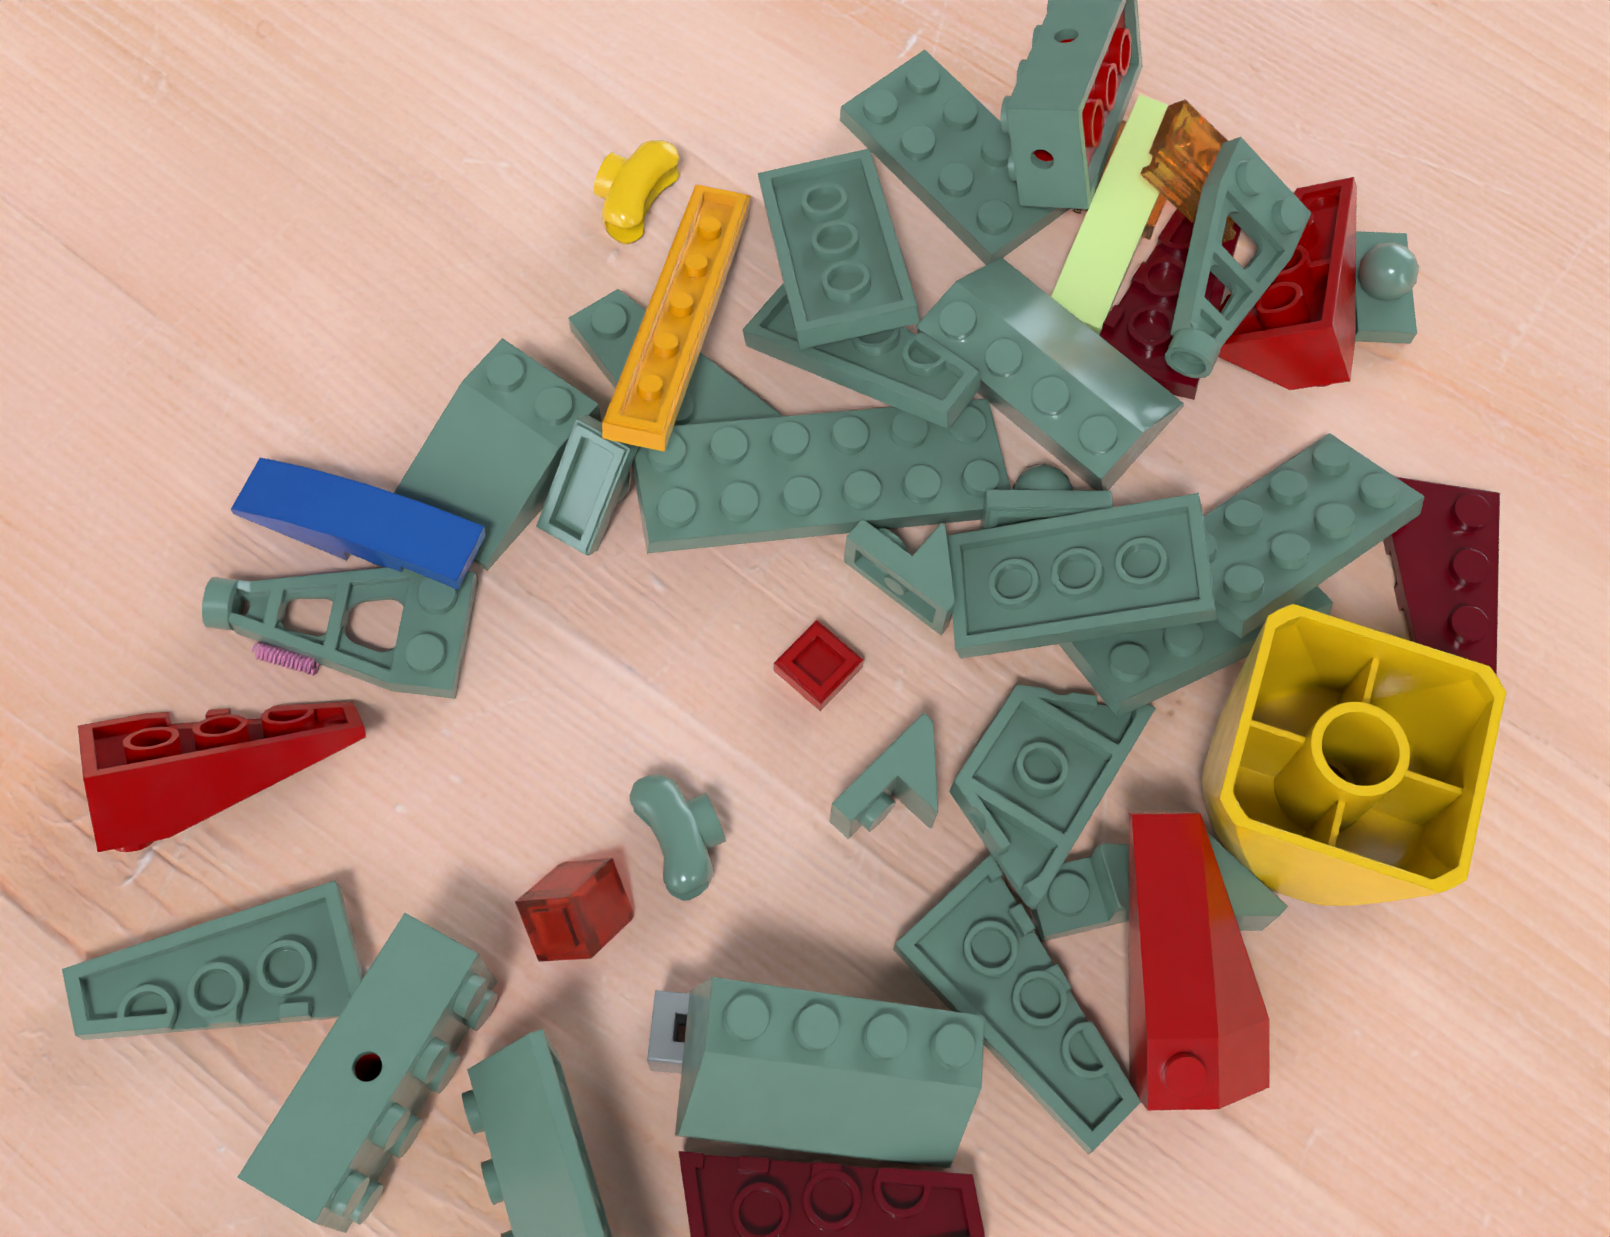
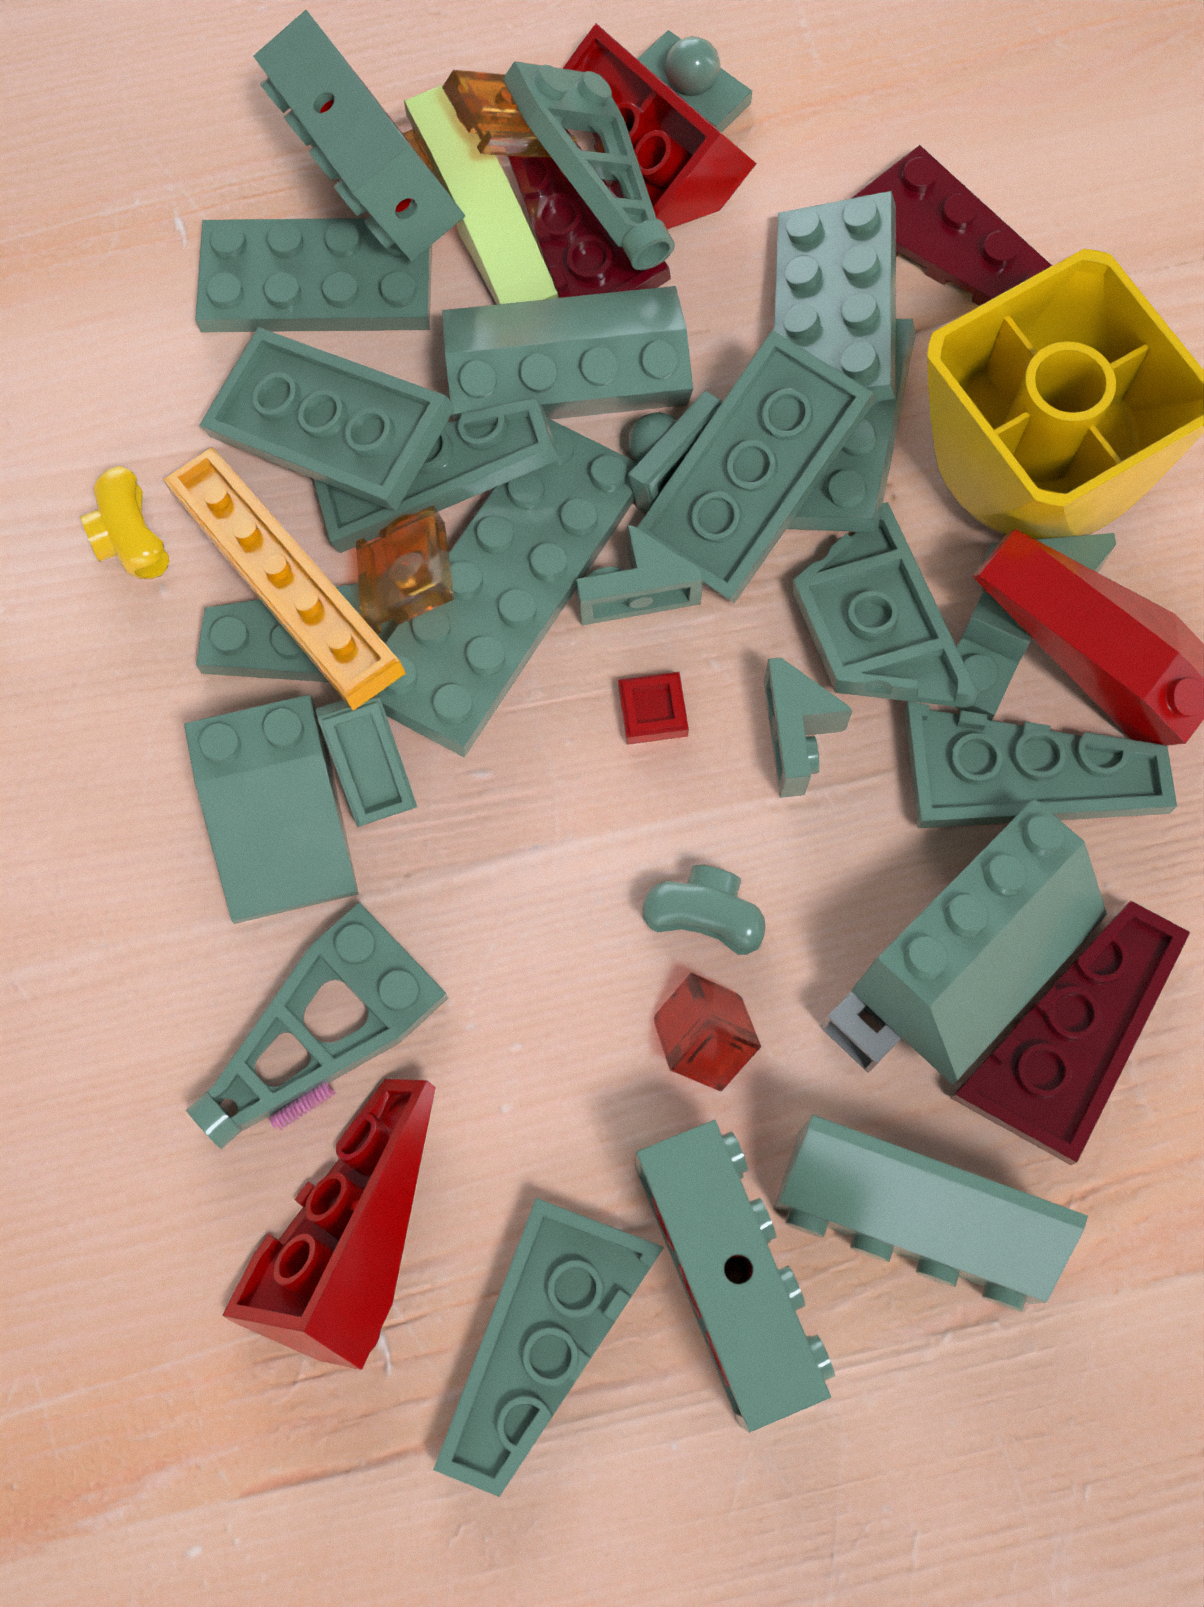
camera: 45 degrees left, 5 degrees up
(359, 521) = (235, 959): blue slope -> none
(760, 393) = (404, 569): none -> clear orange plate

